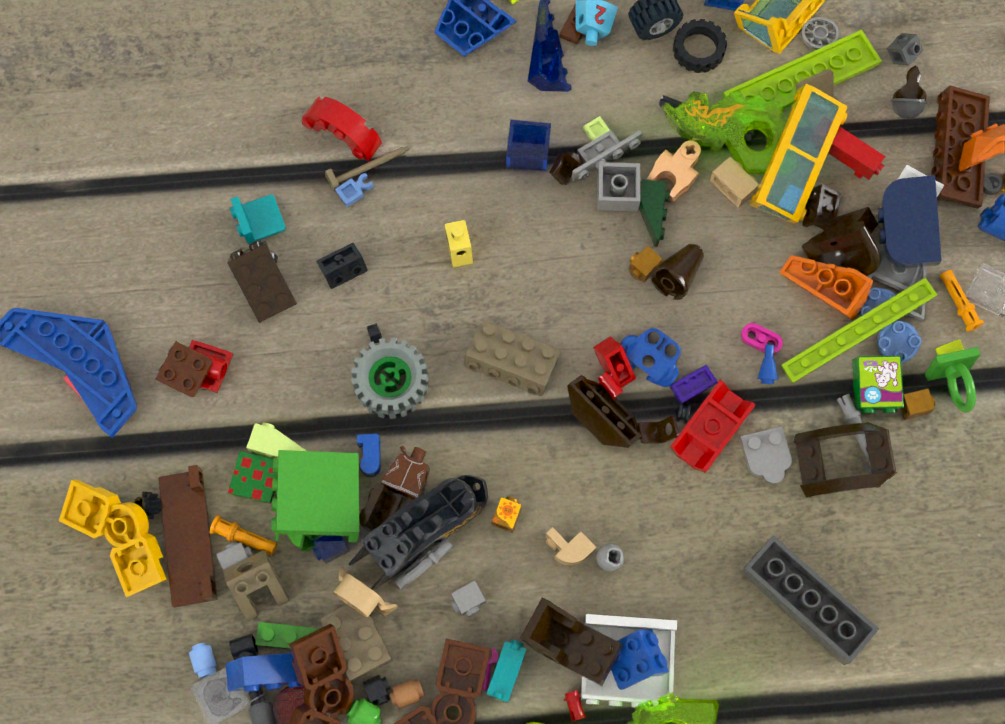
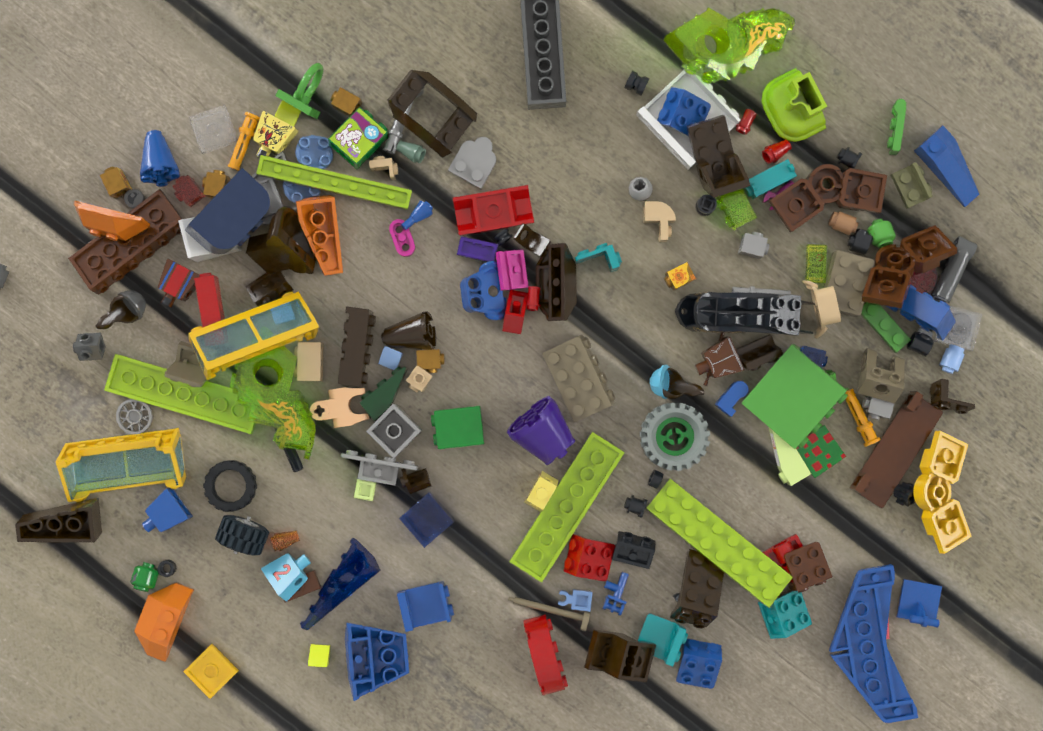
camera: 135 degrees left, 15 degrees up
(59, 428) = (919, 603): none -> blue plate
(168, 321) = (786, 615): none -> teal bracket
(191, 619) = (940, 398): none -> dark brown bracket
(210, 226) = (699, 663): none -> blue bracket
(275, 326) = (719, 543): none -> lime plate
(280, 174) = (620, 656): none -> dark brown bracket
(322, 216) = (616, 598): none -> blue arm
(372, 227) = (589, 558): none -> red bracket
(372, 298) = (635, 505): none -> black brick
(398, 636) = (816, 263): none -> clear neon green tile
(427, 252) = (566, 507): none -> lime plate
(431, 417) = (670, 384): none -> piece
(469, 87) = (425, 605): none -> blue panel
(502, 284) = (542, 431): none -> dark purple cone
(509, 616) = (736, 208): none -> clear neon green brick
(524, 703) = (774, 152): none -> red cone
(535, 596) = (703, 203): none -> black wheel
(571, 234) = (458, 427): none -> green brick
(581, 474) = (613, 258): none -> teal bracket
(622, 40) = (283, 540): none -> clear orange cone
(638, 239) = (418, 379): none -> tan bracket
(650, 392) = (512, 270): none -> dark pink plate
(676, 241) = (390, 358): none -> light blue slope
(701, 649) = (636, 83): none -> black wheel
(712, 223) = (356, 346): none -> dark brown wedge
(823, 415) = (412, 151): none -> sand green cone
(827, 386) = (380, 163): none -> tan bracket
(896, 148) = (176, 282): none -> torso
(944, 324) = (273, 135): none -> light yellow torso
(949, 247) = (214, 183): none -> pearl gold brick
(959, 224) = (188, 190): none -> clear red brick

